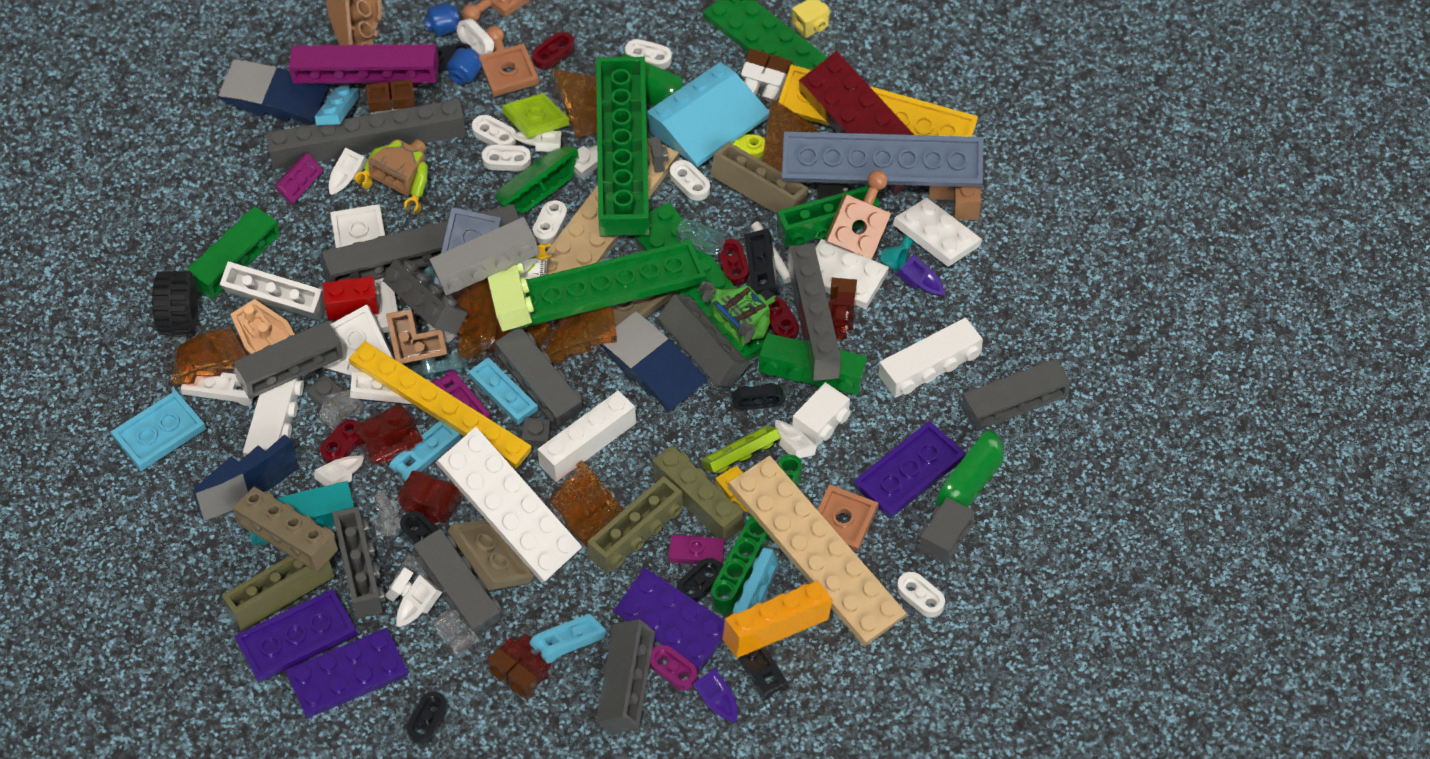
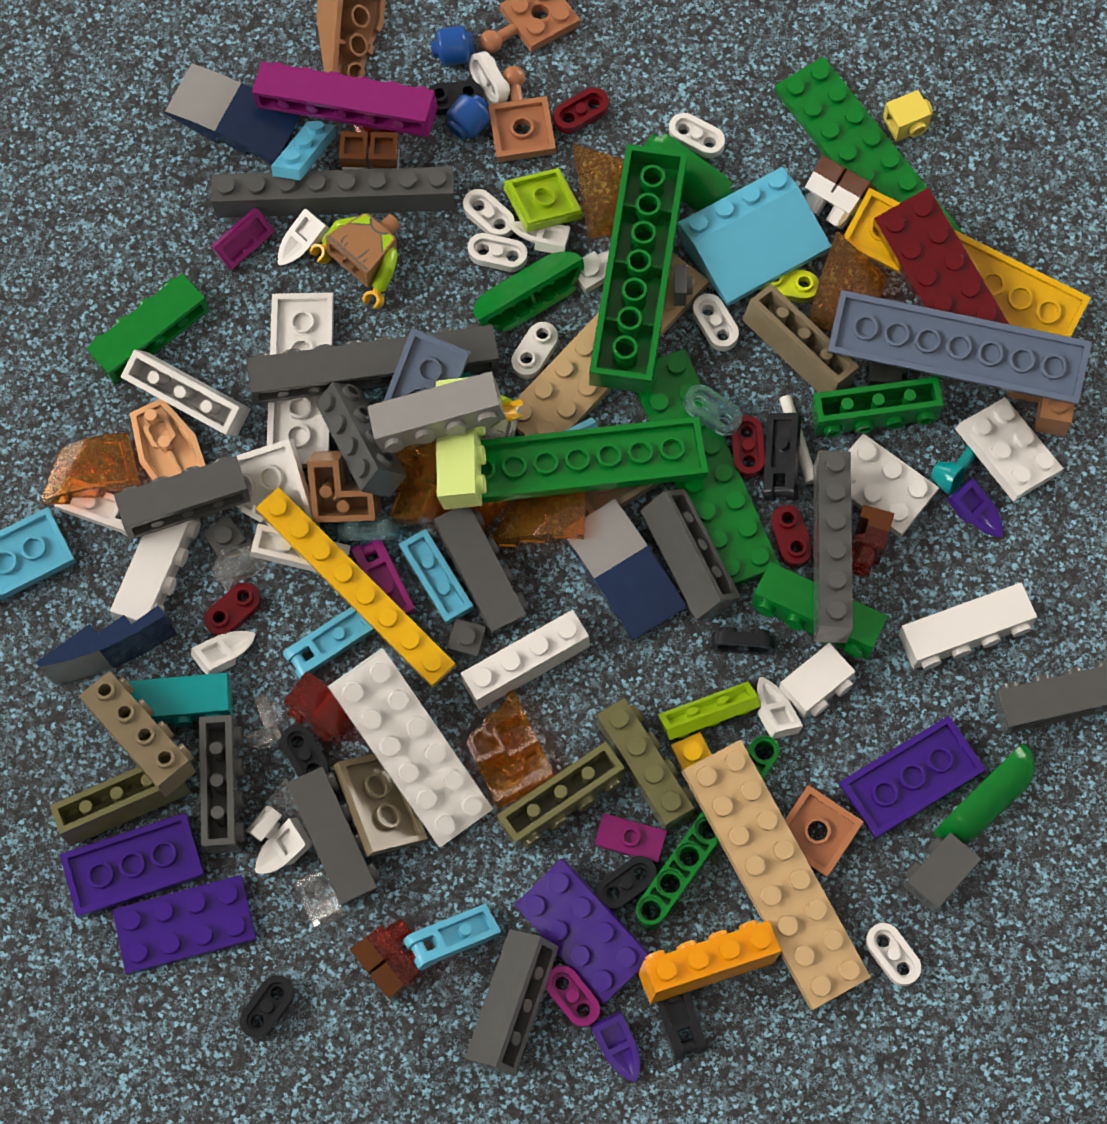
camera: 15 degrees right, 15 degrees up
(174, 302) = (63, 392): black tyre -> none
(348, 296) = (272, 422): red brick -> none
(387, 435) = (286, 617): clear red brick -> none
(739, 310) = (742, 526): torso -> none
(759, 581) = (692, 907): medium azure plate -> none
(855, 209) = (908, 410): plate -> none

